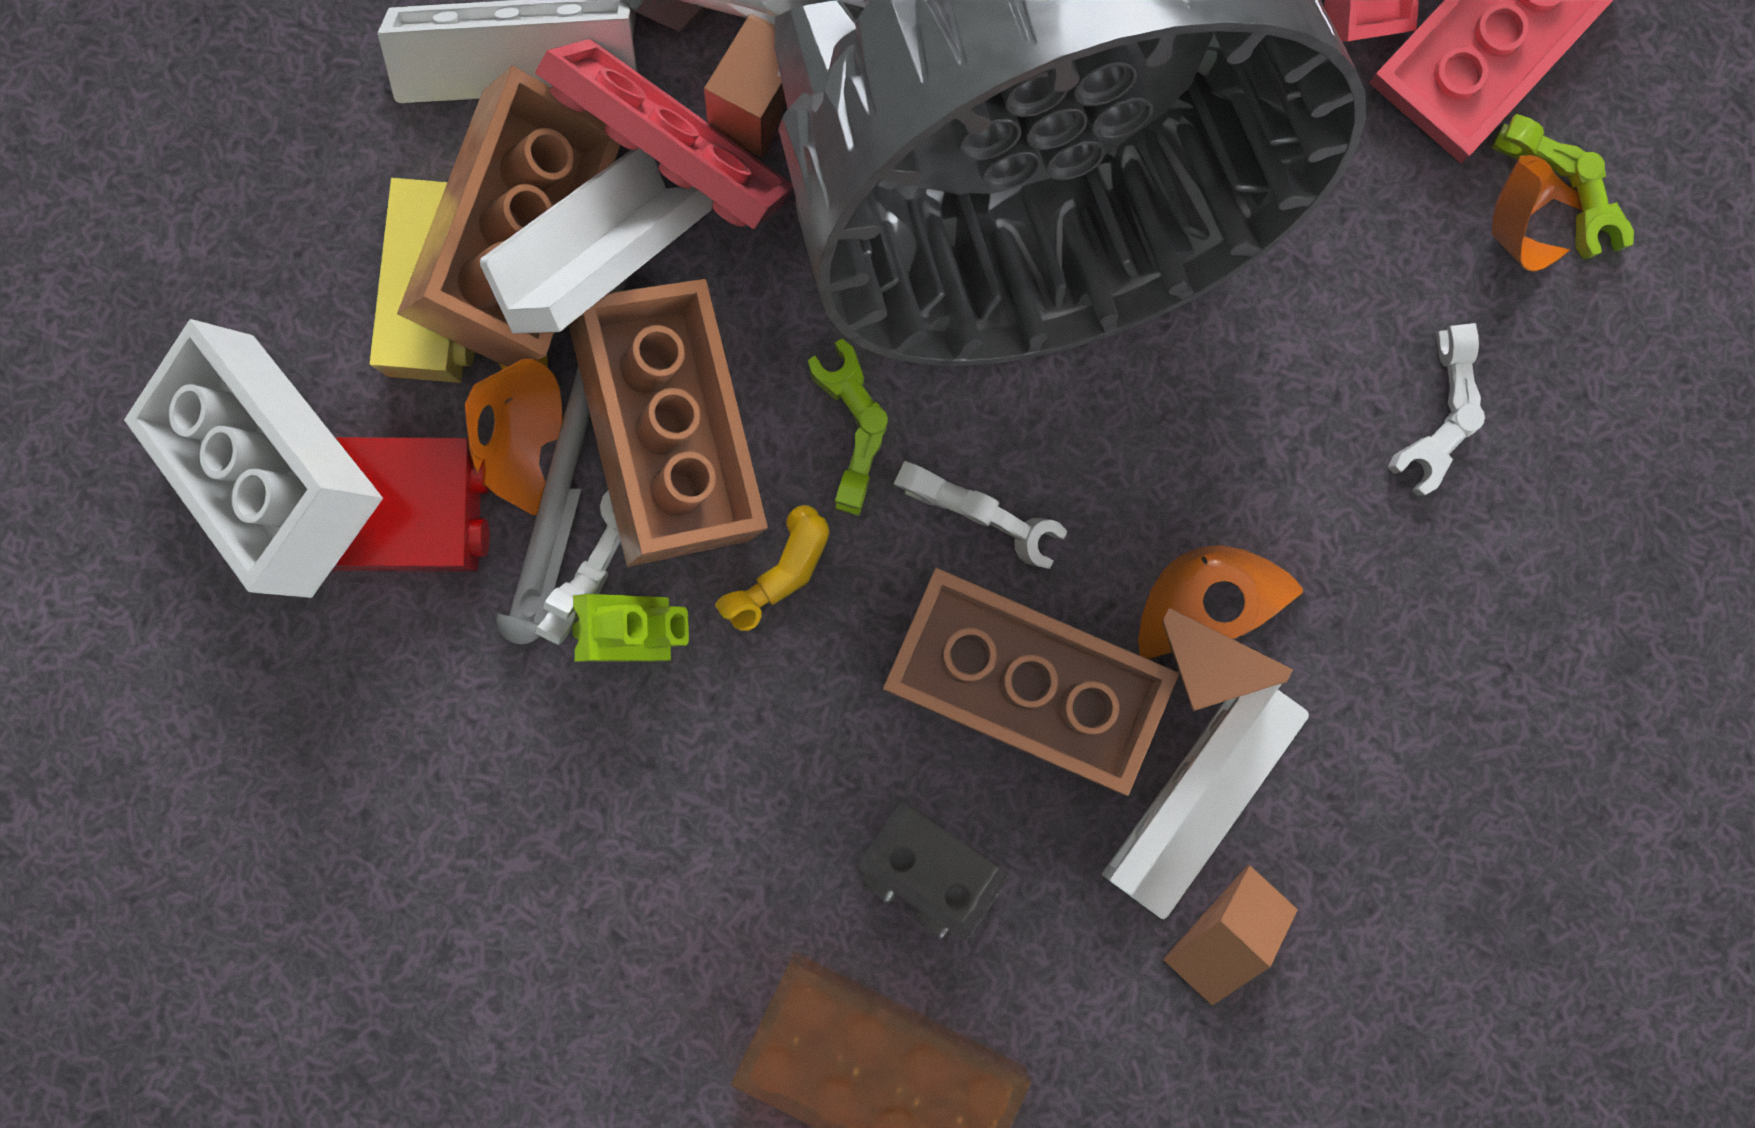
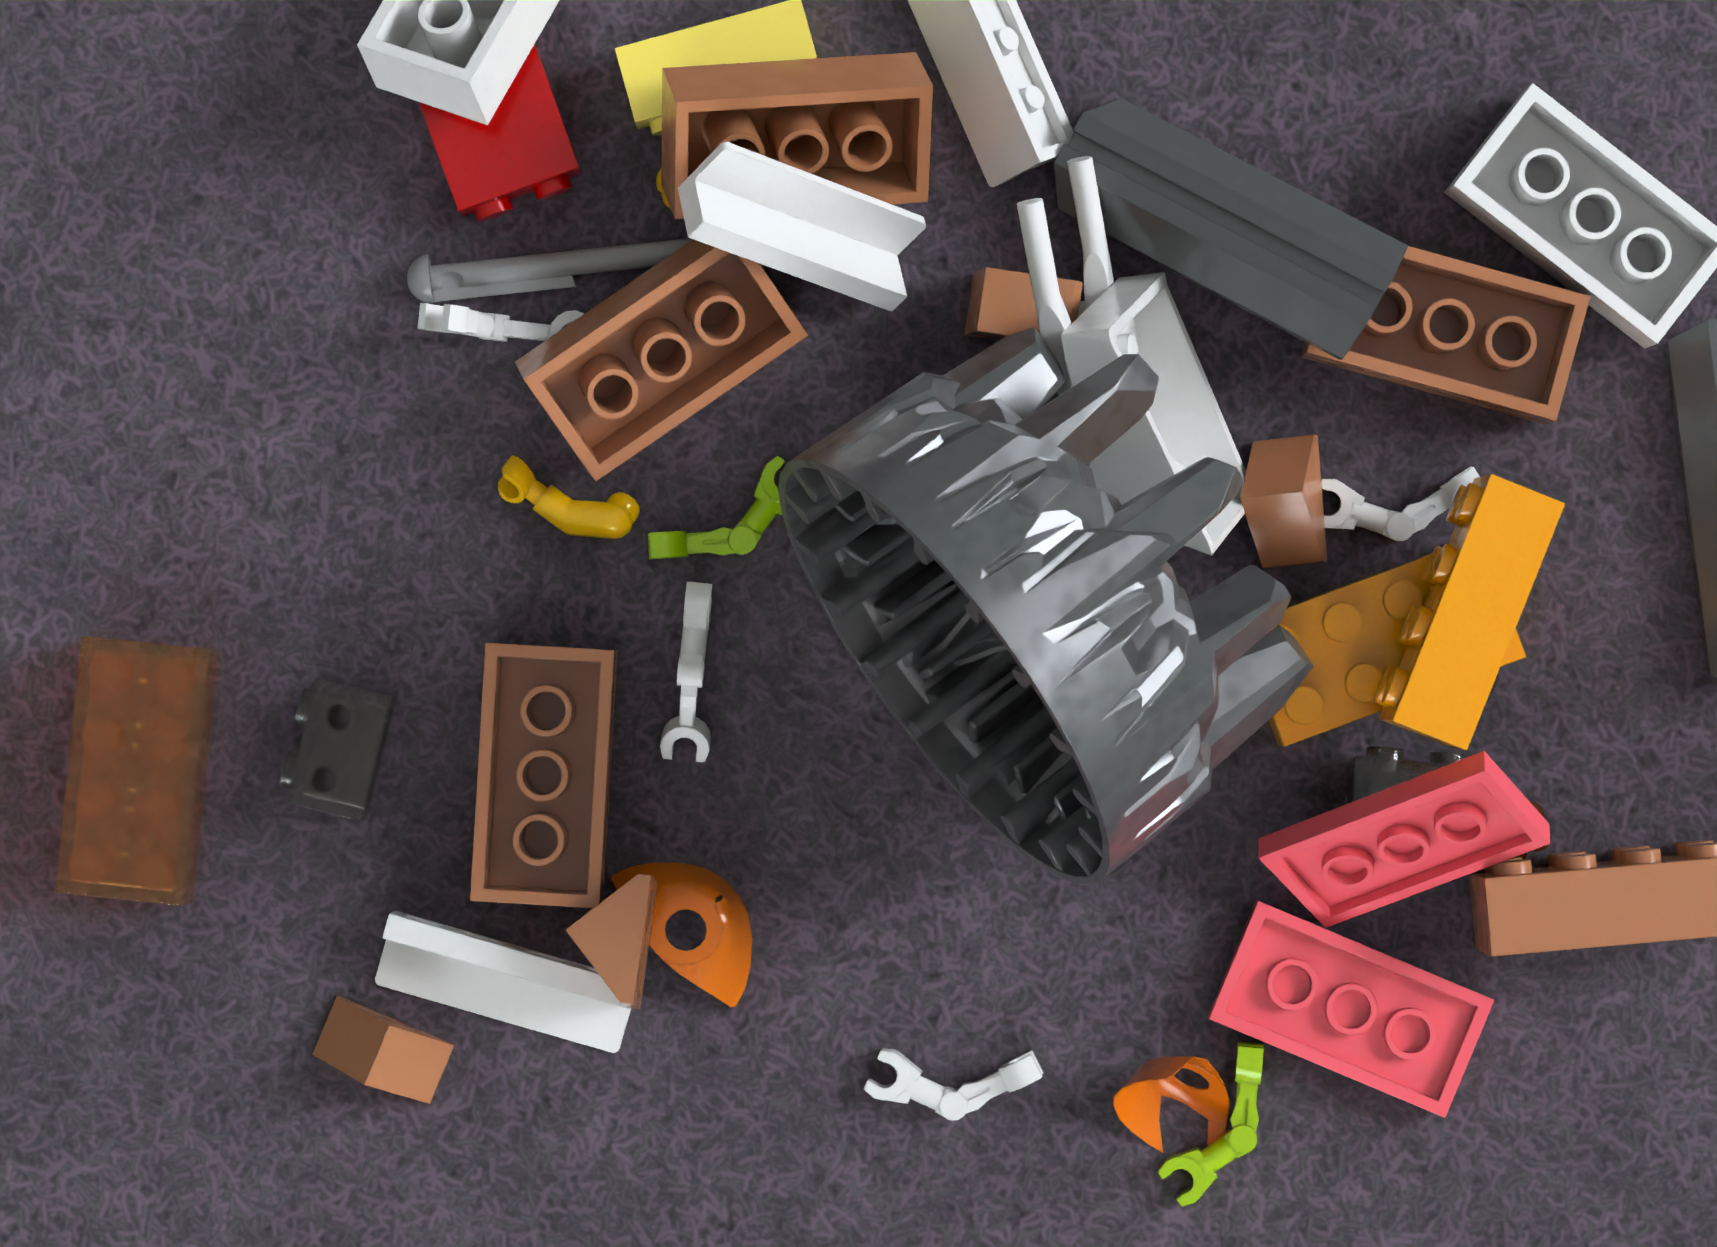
camera: 65 degrees right, 5 degrees up
(518, 431) = (612, 206): orange piece -> none
(627, 628) = (458, 385): lime hips -> none
(650, 119) = (936, 246): coral plate -> none

